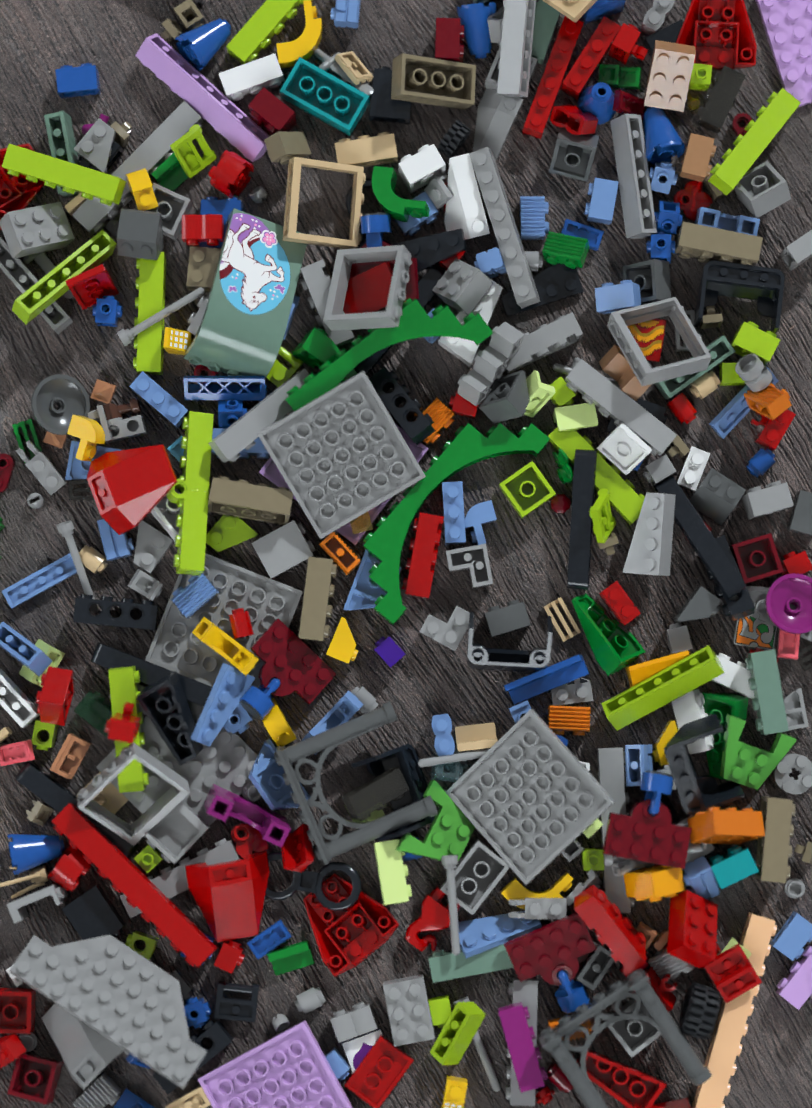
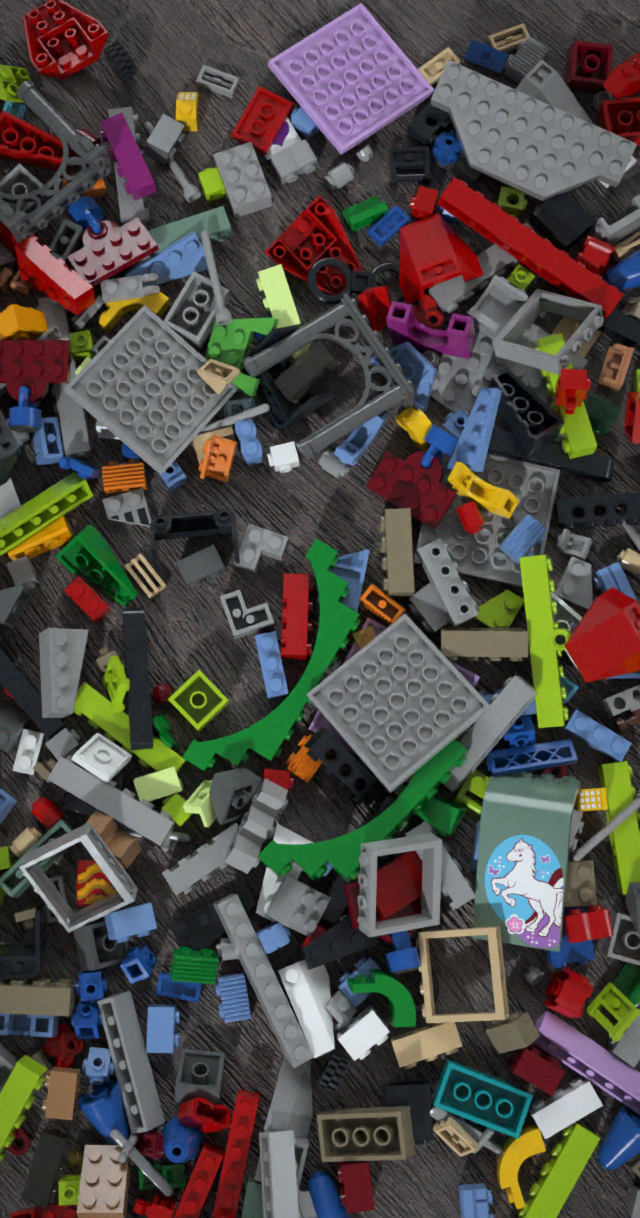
camera: 165 degrees right, 5 degrees down
(275, 562) = (447, 583): none -> light grey brick
(343, 643) = (363, 516): yellow slope -> none
(389, 651) = (316, 516): dark purple brick -> none
(411, 714) = (283, 457): none -> white brick
(433, 917) = (233, 267): red hips -> none
(457, 1033) = (191, 162): lime brick -> none
(463, 804) = (218, 375): none -> tan slope
(475, 721) = (217, 458): none -> orange bracket
(477, 516) = (245, 667): medium blue brick -> none
(482, 1063) = (164, 140): none -> brick
(544, 1096) = (96, 122): red plate -> none
(547, 679) = (143, 515): blue fence -> none
(607, 731) = (83, 469): none -> blue plate
(615, 259) = (138, 964): none -> blue brick
(643, 99) = (130, 1151): none -> light grey sword
(666, 735) = (23, 468): yellow slope -> none

